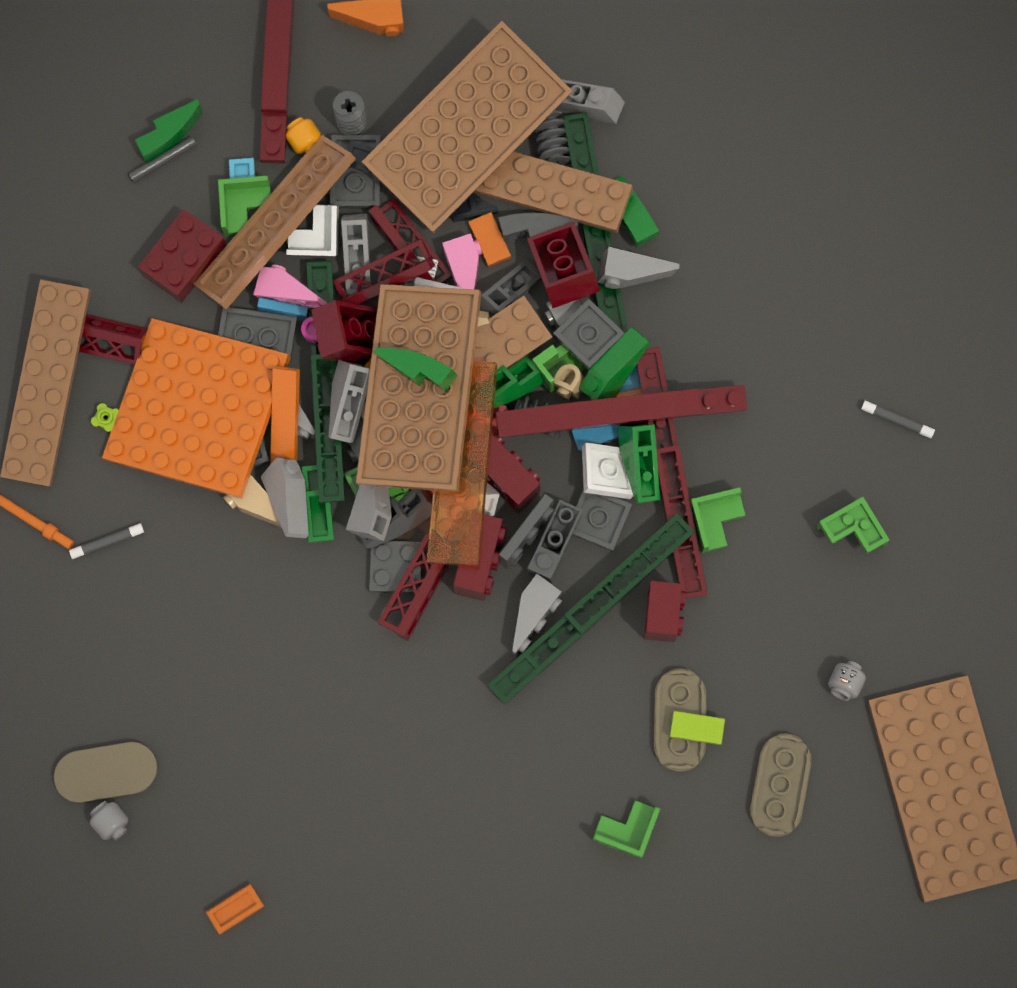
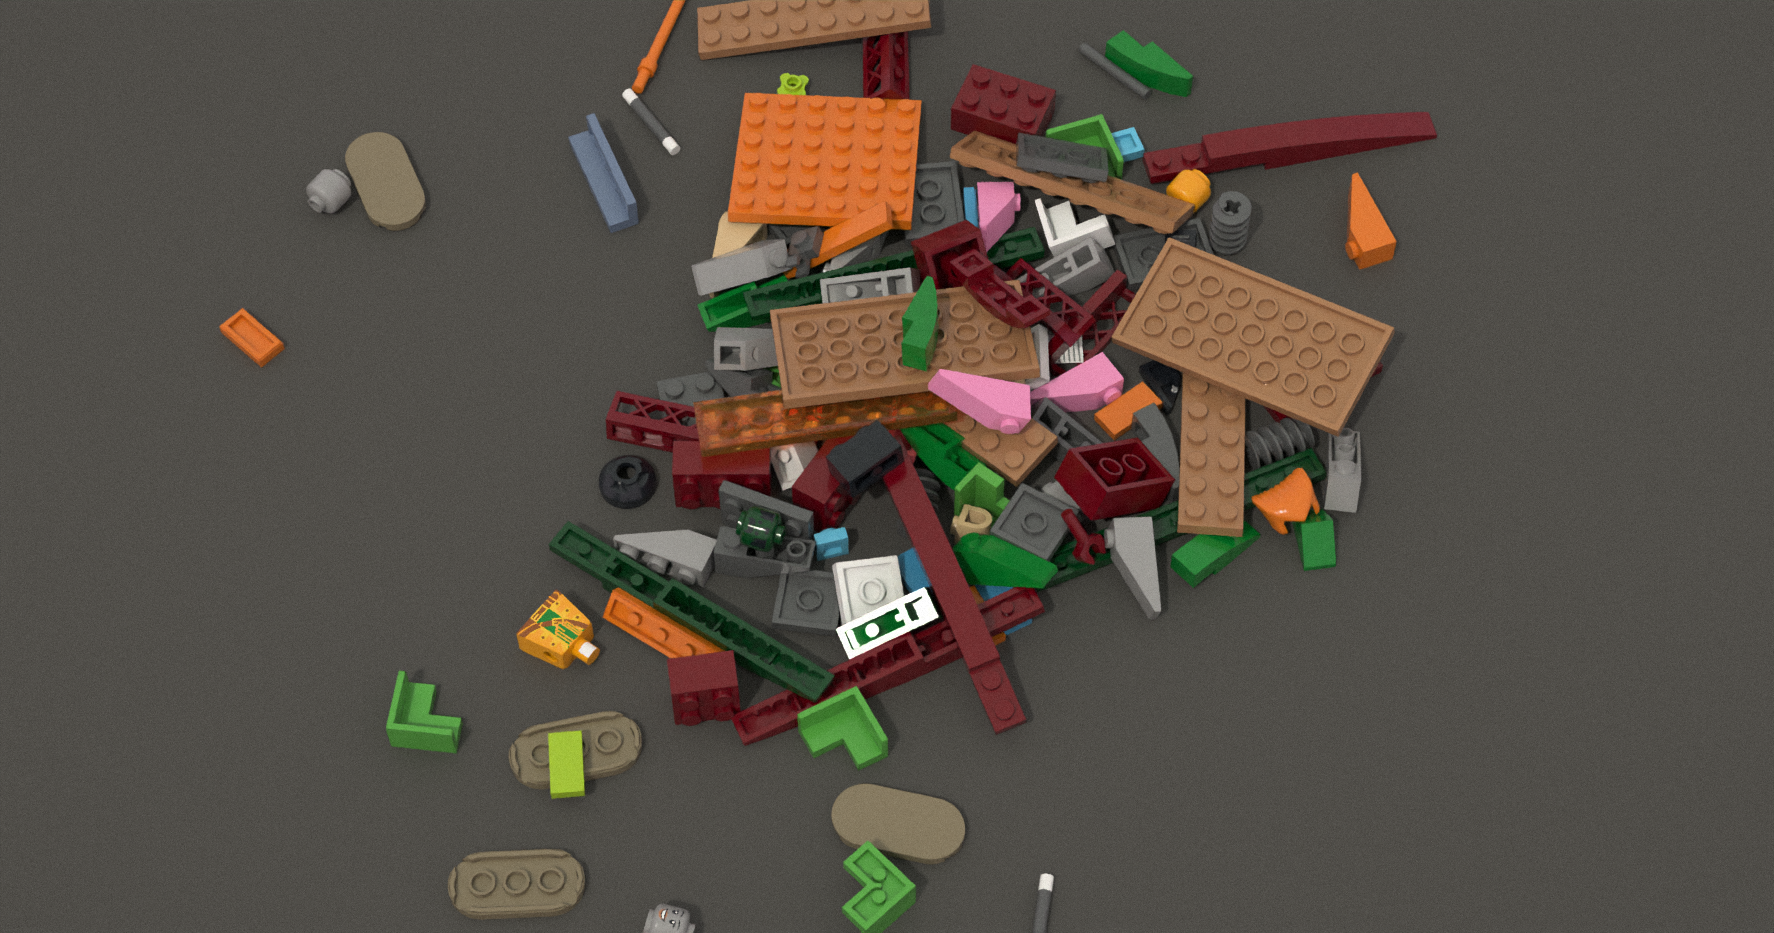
camera: 75 degrees right, 20 degrees down
(154, 590) = (604, 176): none -> sand blue fence
(254, 222) = (1061, 158): none -> dark grey plate
(283, 445) = (802, 248): none -> dark grey plate
(400, 302) = (995, 295): none -> dark red slope
(456, 646) = (627, 492): none -> black piece
(495, 335) = (987, 400): none -> bright pink slope
(516, 442) = (864, 458): none -> black brick
(550, 536) = (760, 528): none -> dark green head
(552, 488) = (831, 543): none -> medium azure plate
(582, 711) = (558, 633): none -> torso
(601, 633) = (654, 627): none -> orange tile
(609, 146) = (1288, 501): none -> orange hair
(609, 302) = (1083, 539): none -> dark red bar
(634, 137) = (1316, 541): none -> green slope
(797, 498) = (898, 823): none -> dark tan tile

